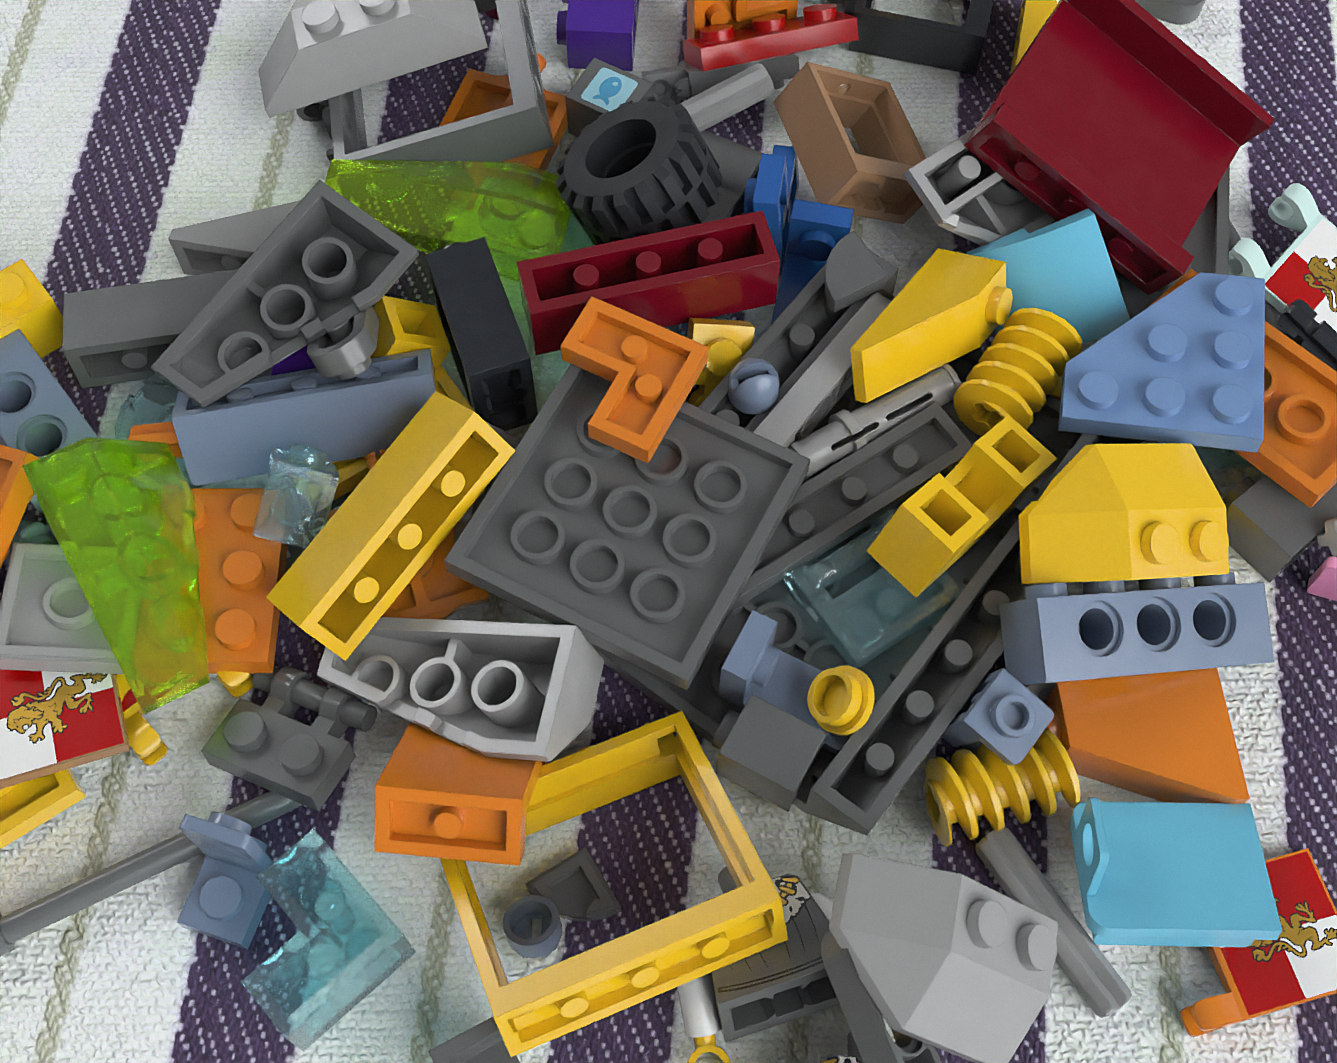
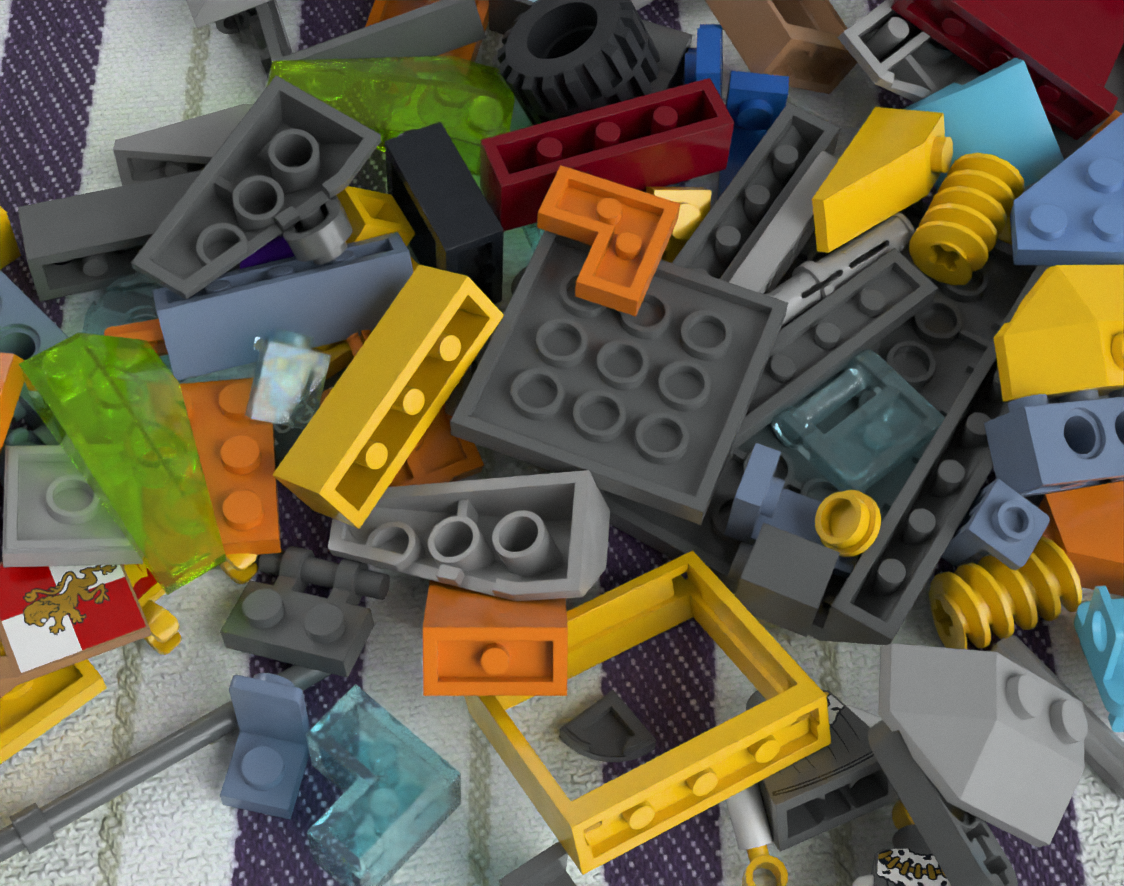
camera: 10 degrees left, 5 degrees down
(518, 926) = (572, 750): sand blue hinge -> none
(756, 393) = (726, 246): sand blue hinge -> none
(851, 273) = (798, 134): dark grey tile -> none
(958, 510) = (935, 336): yellow arch -> none

